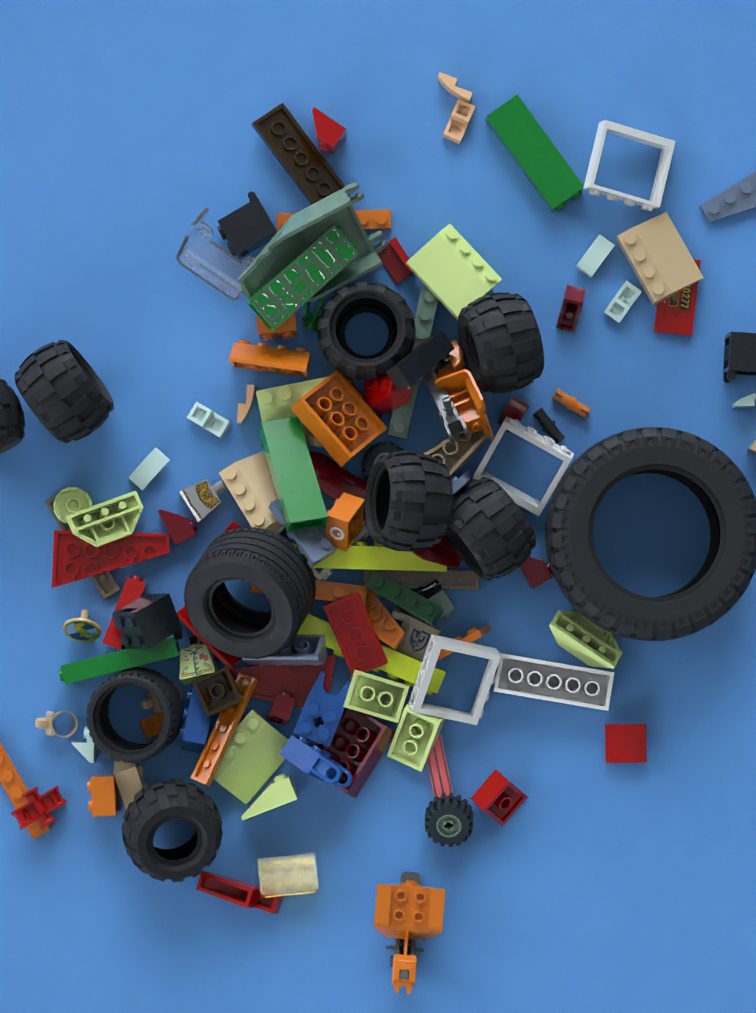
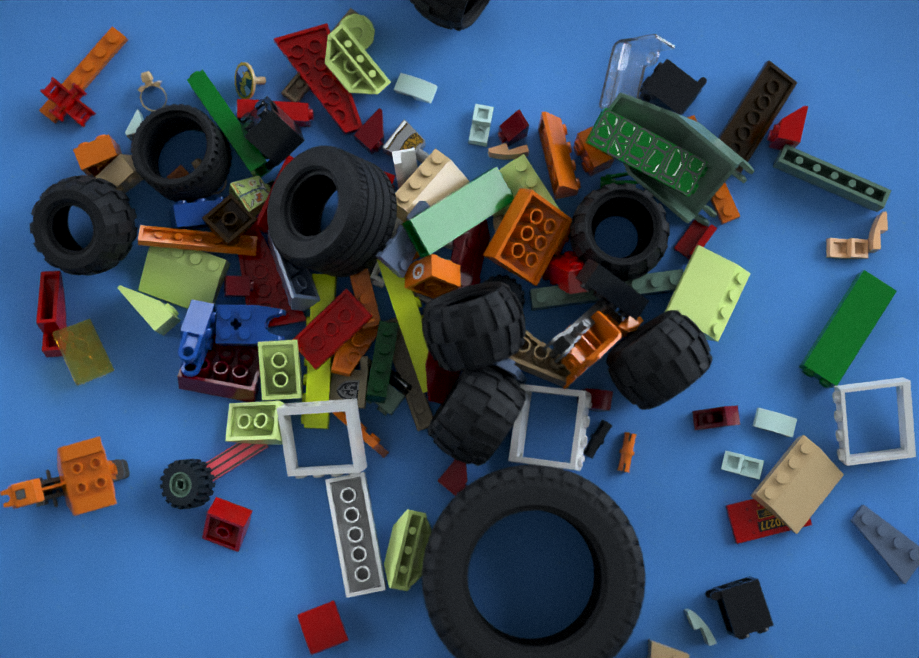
camera: 70 degrees right, 5 degrees down
(225, 507) = (405, 164): none -> white panel
(226, 391) = (513, 128): none -> dark red slope
(388, 109) = (832, 178): none -> sand green brick

